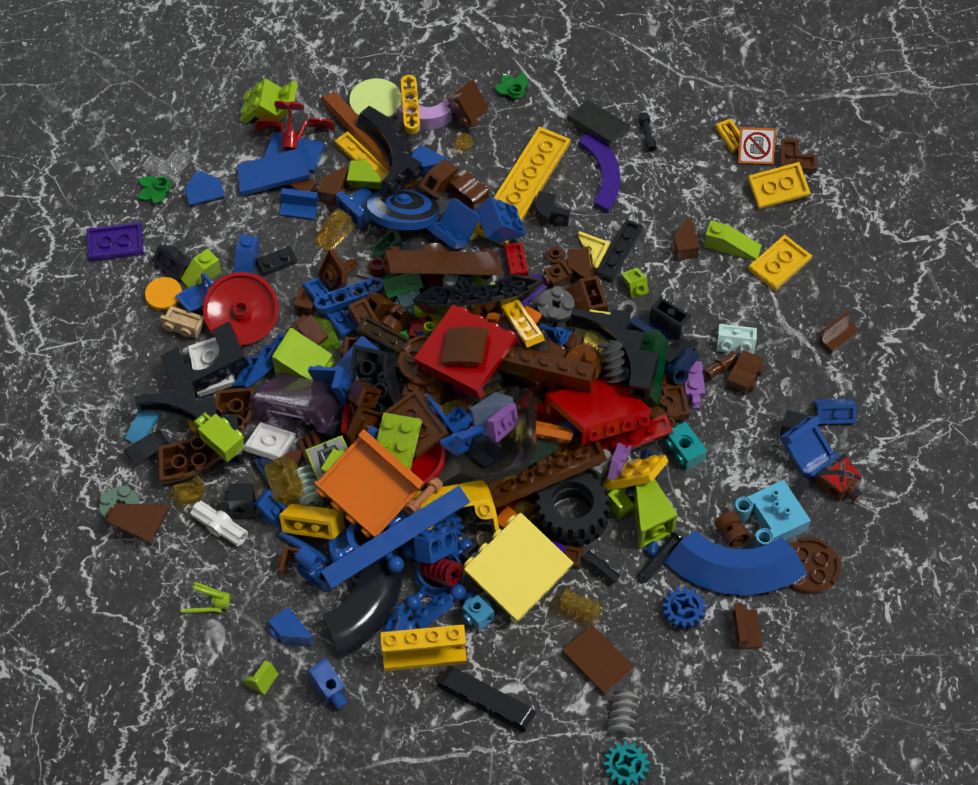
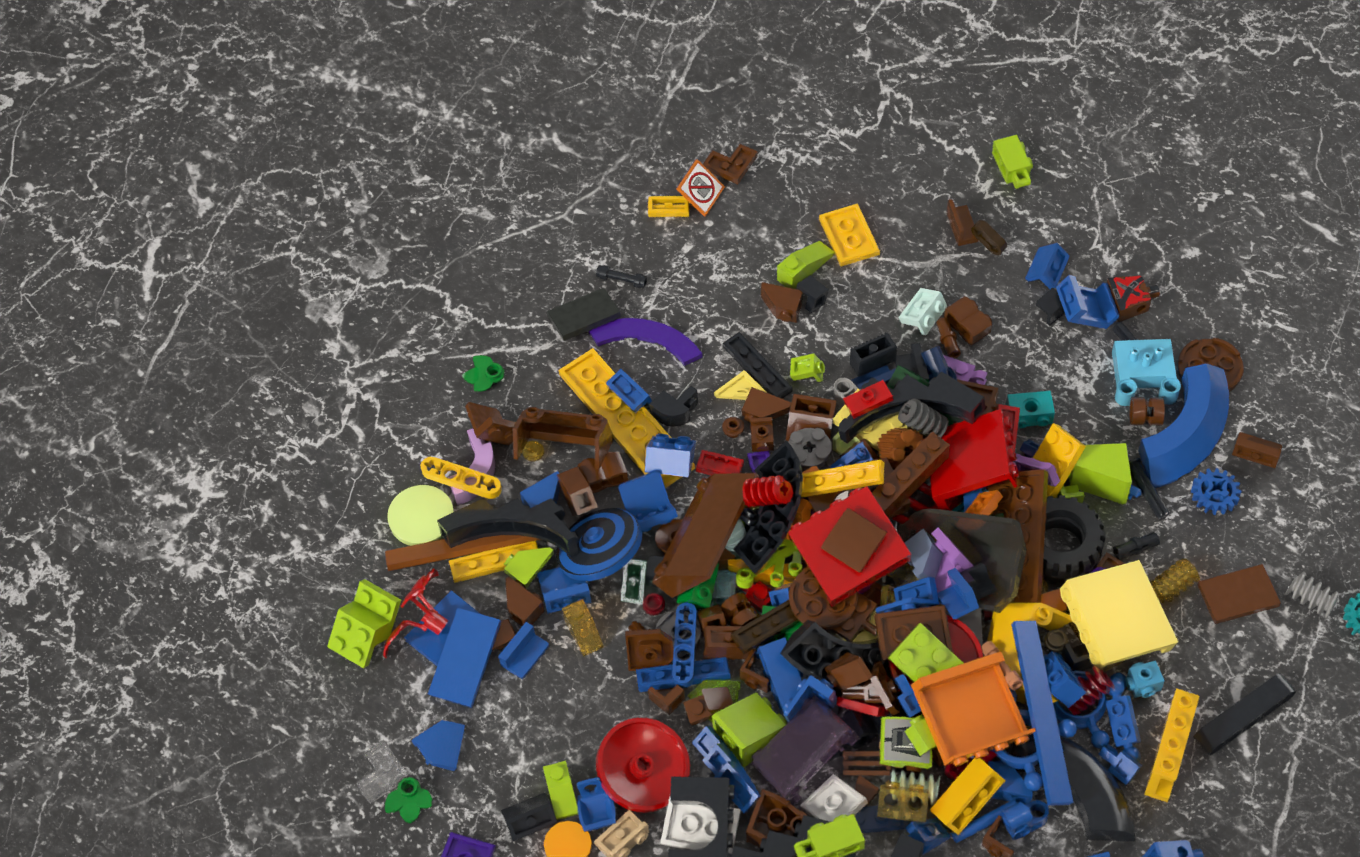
camera: 60 degrees left, 0 degrees up
(246, 254) = (567, 733): blue slope -> none
(276, 261) = (587, 705): black plate -> none
(483, 279) = (767, 491): none -> red piece
(490, 166) = (563, 427): none -> reddish brown windscreen
(545, 175) = (628, 391): none -> blue panel
(606, 315) = (868, 399): none -> red plate
(704, 256) = (815, 291): none -> black panel
(778, 185) = (758, 192): yellow tile -> none
(834, 356) = (989, 237): none -> dark brown beam
(924, 346) = (1012, 161): none -> lime brick

